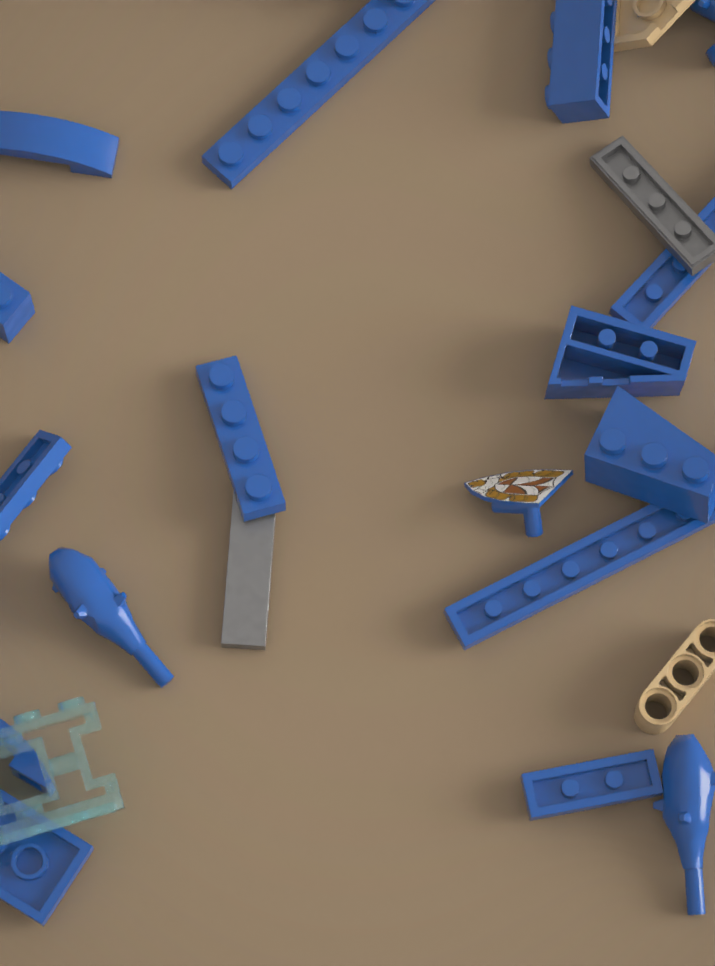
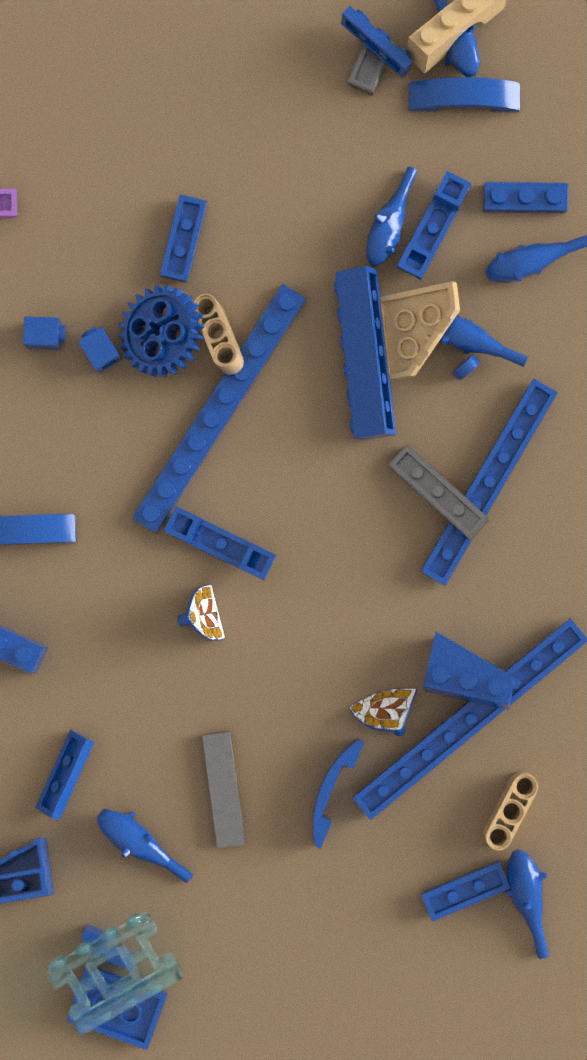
camera: 10 degrees left, 15 degrees up
(240, 438) = (200, 710): blue plate -> none
(276, 298) = (203, 614): none -> shield
(319, 215) = (219, 543): none -> blue slope
(447, 551) = (348, 758): none -> blue slope
(609, 352) = (429, 609): blue wedge -> none

